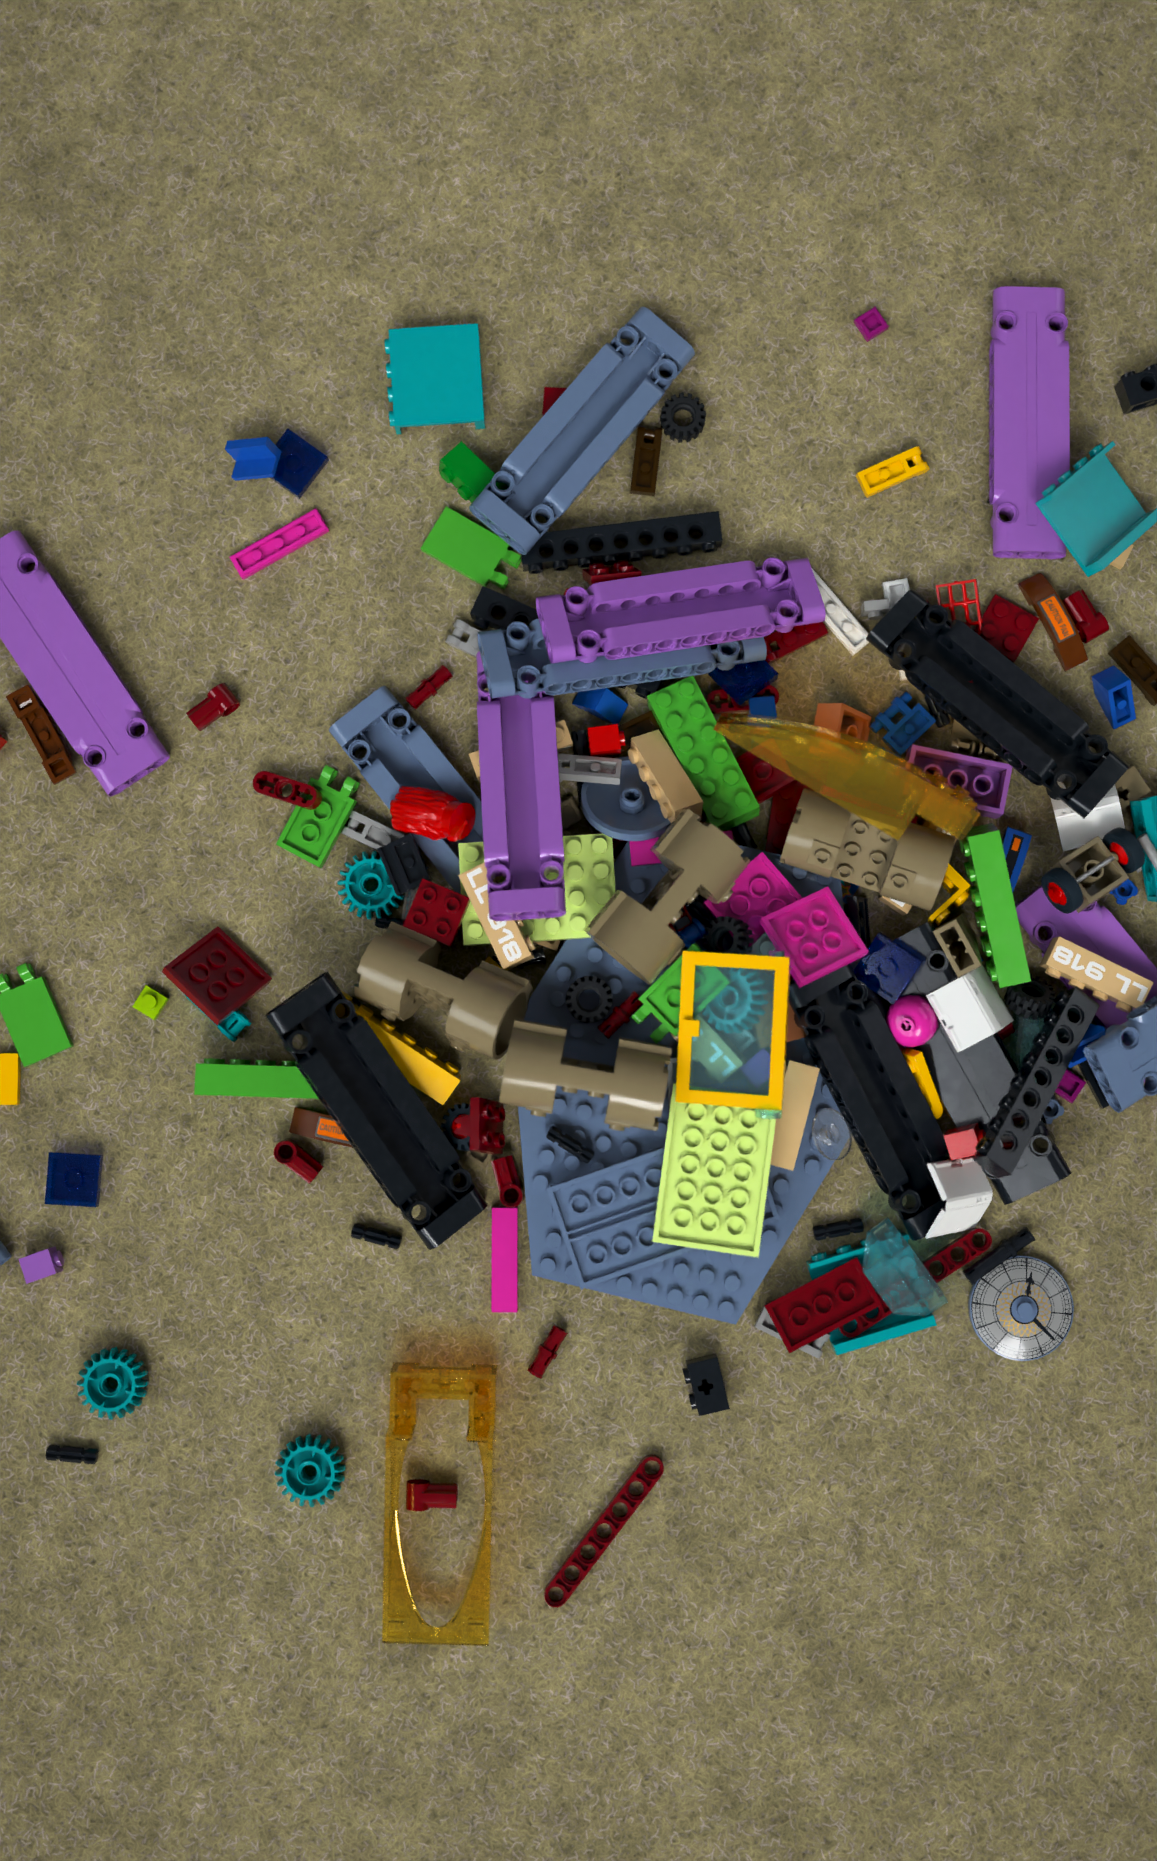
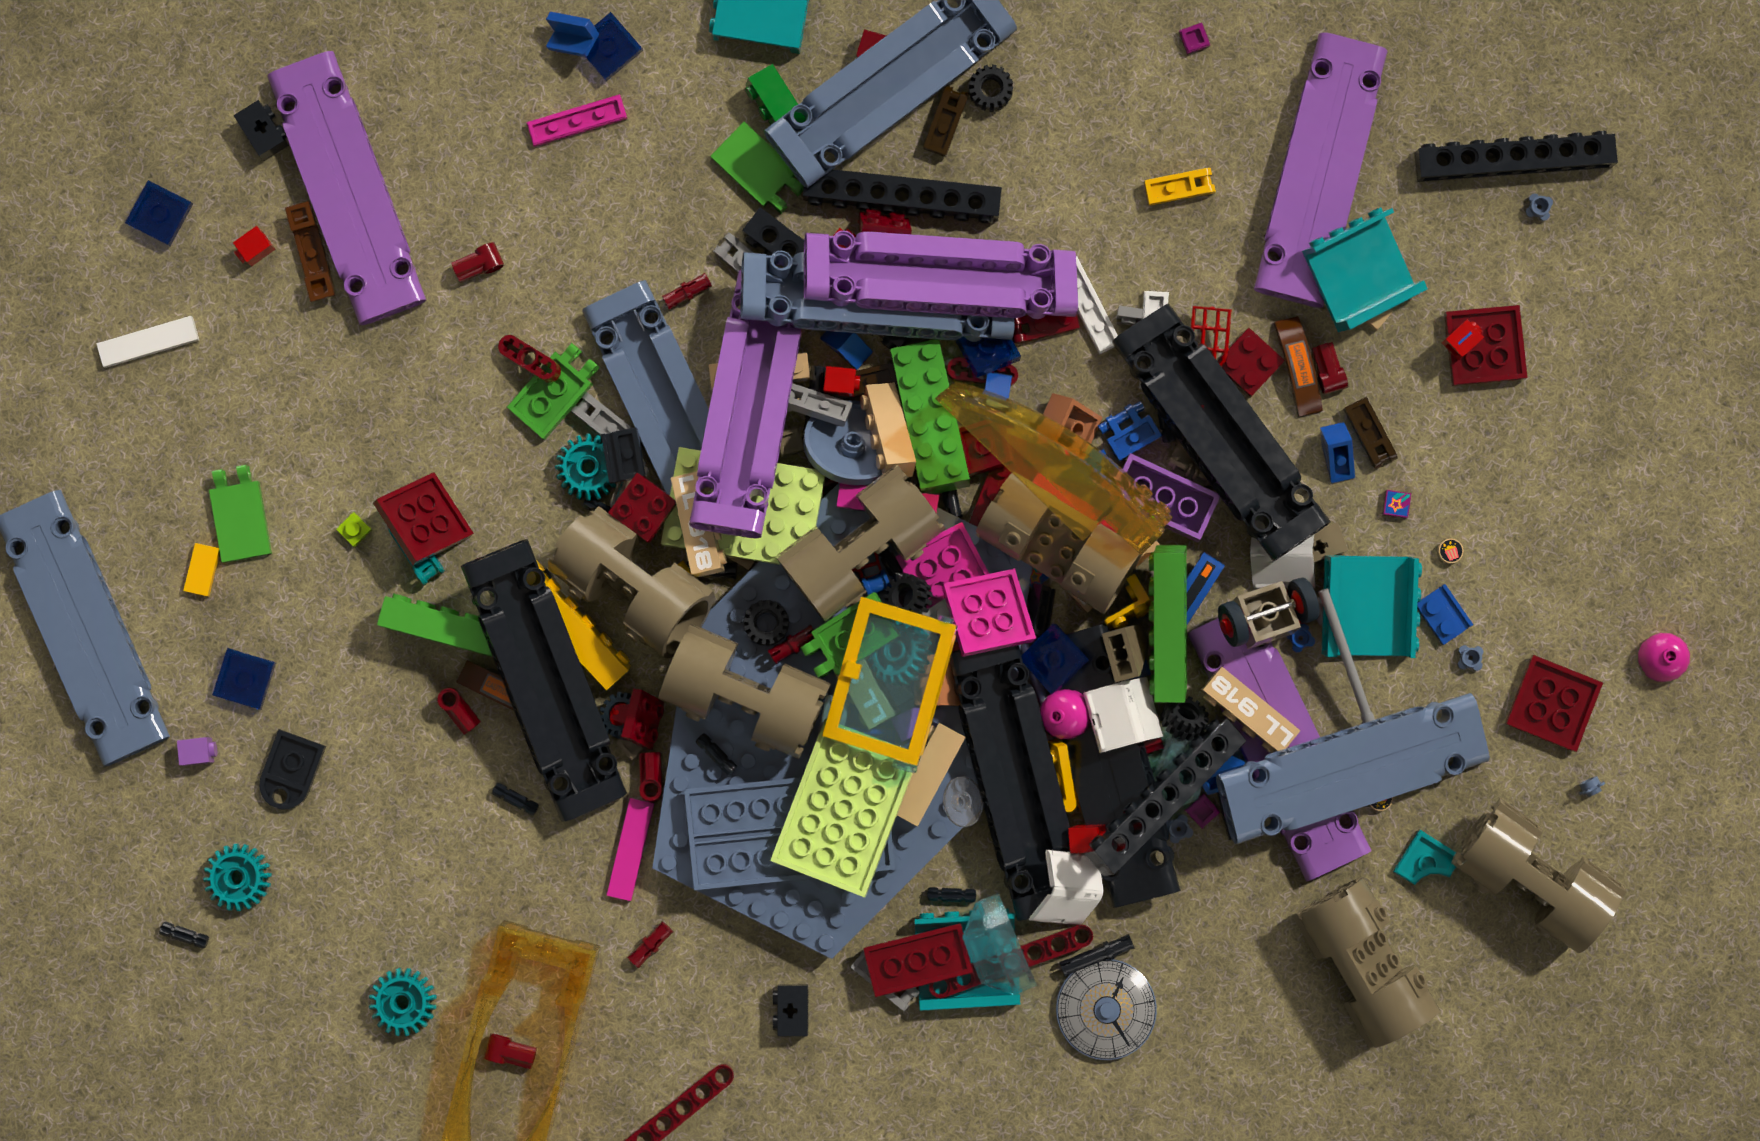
camera: 15 degrees right, 0 degrees up
(141, 1258) = (290, 767): none -> black tile
(431, 814) = (660, 413): red hair -> none

